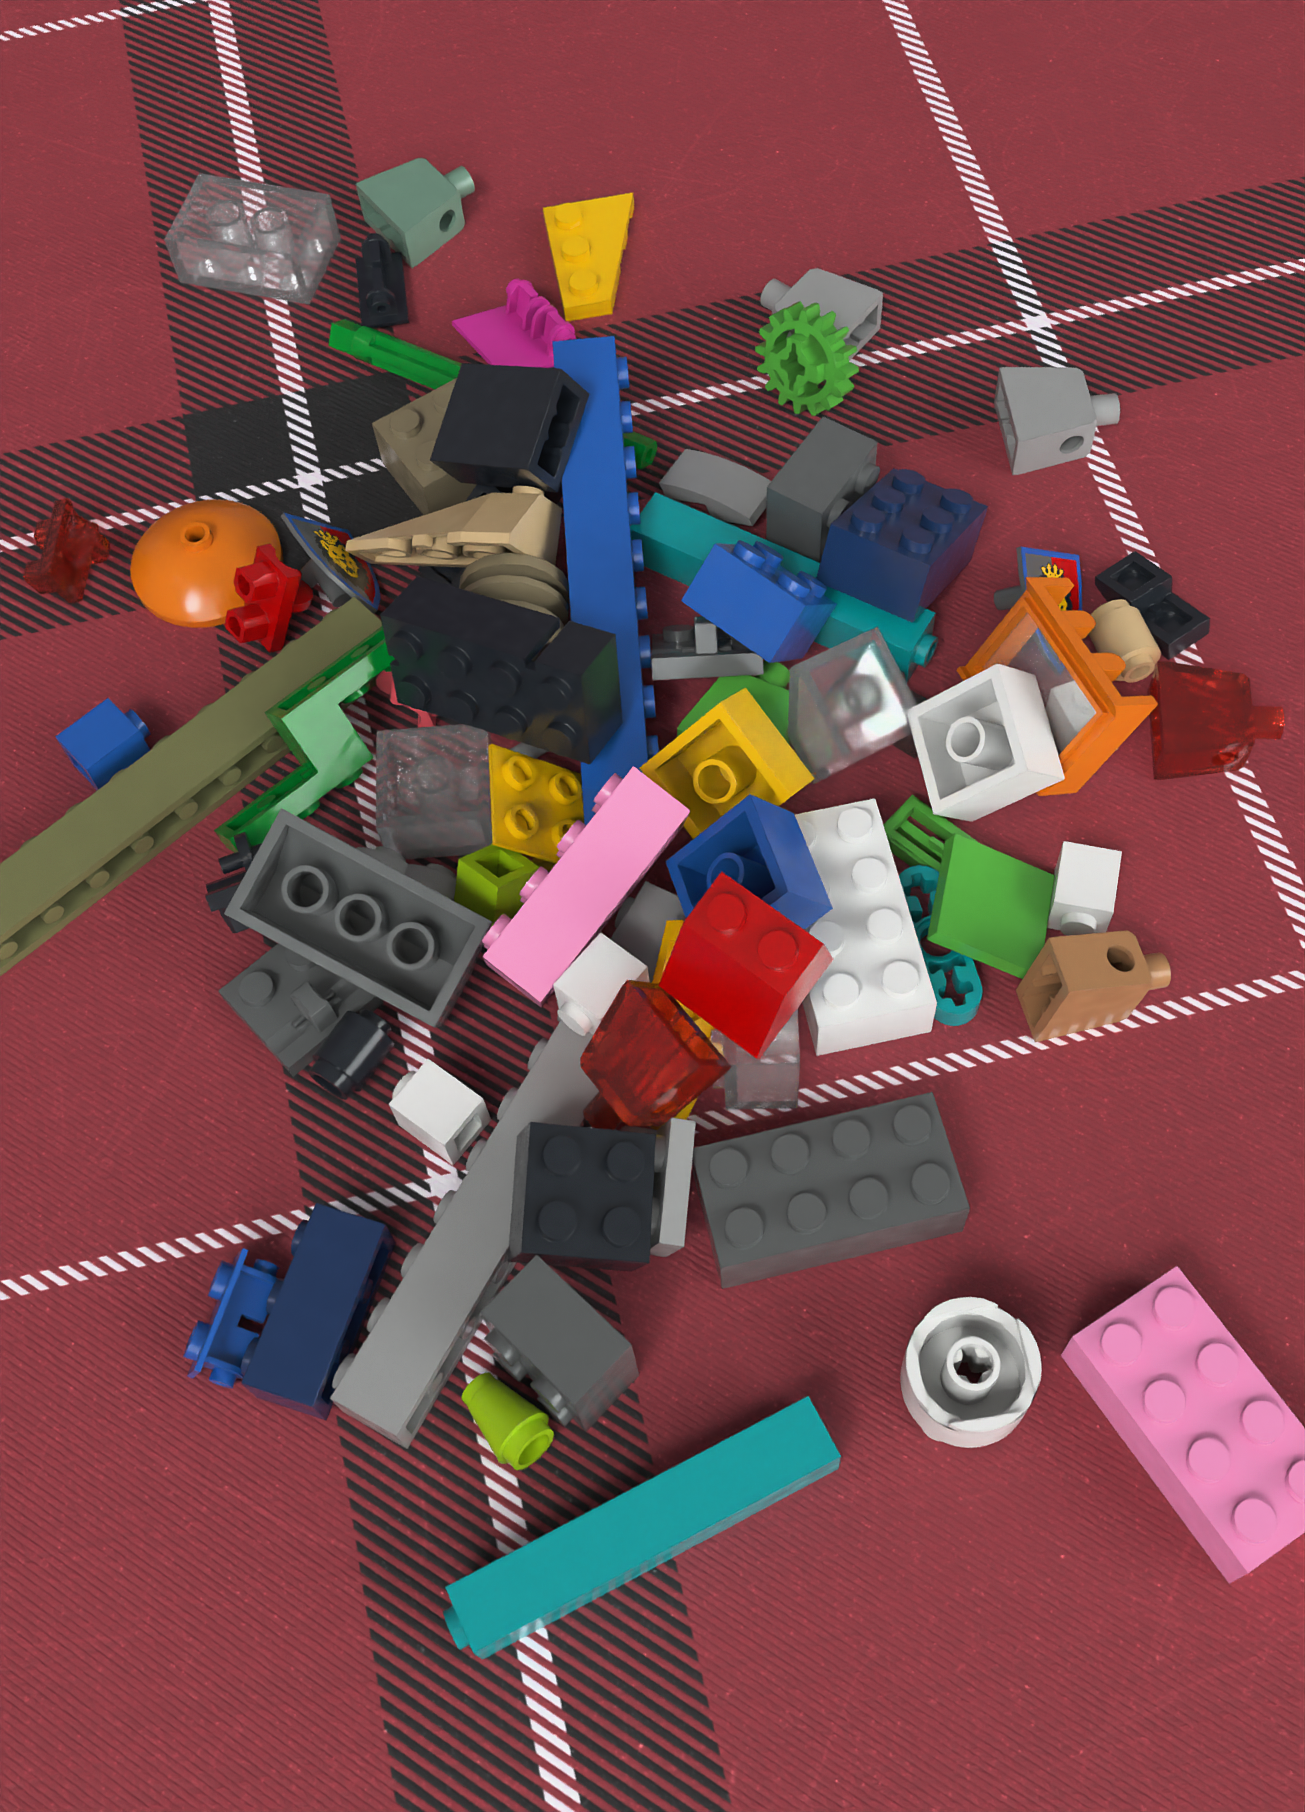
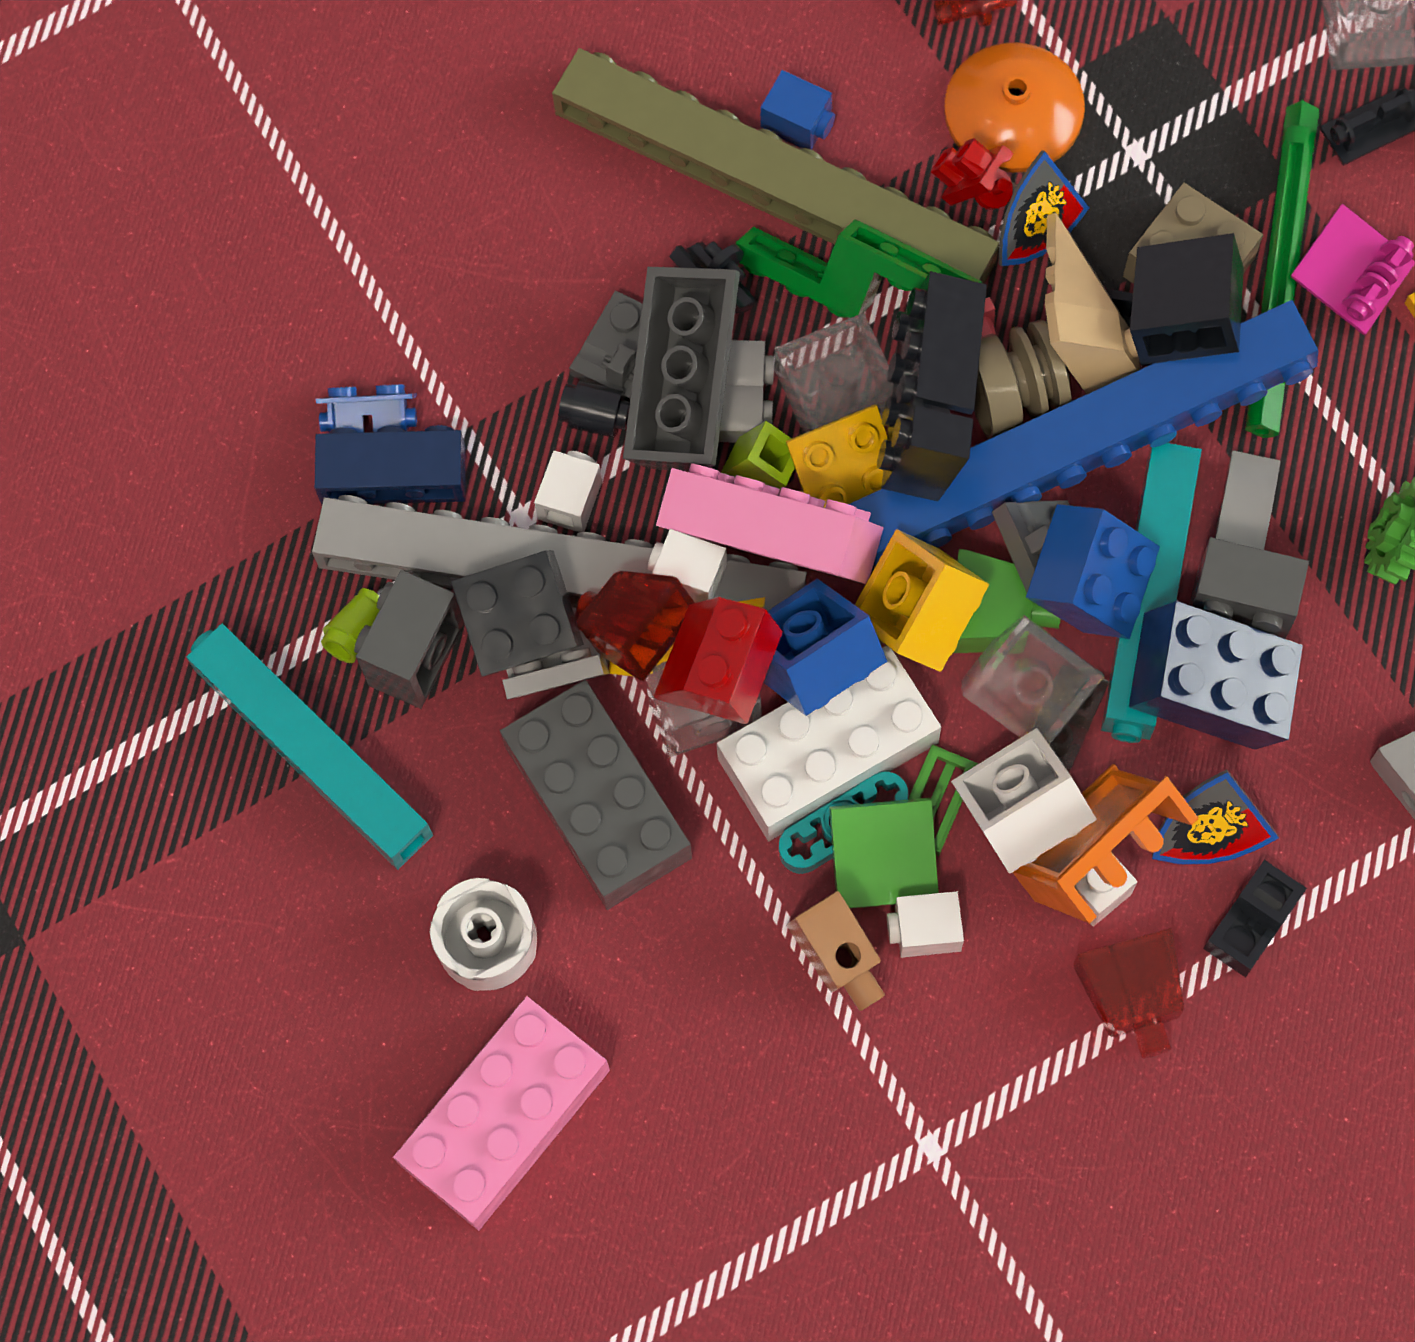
camera: 70 degrees right, 10 degrees up
(1124, 632) = (1197, 900): tan brick -> none

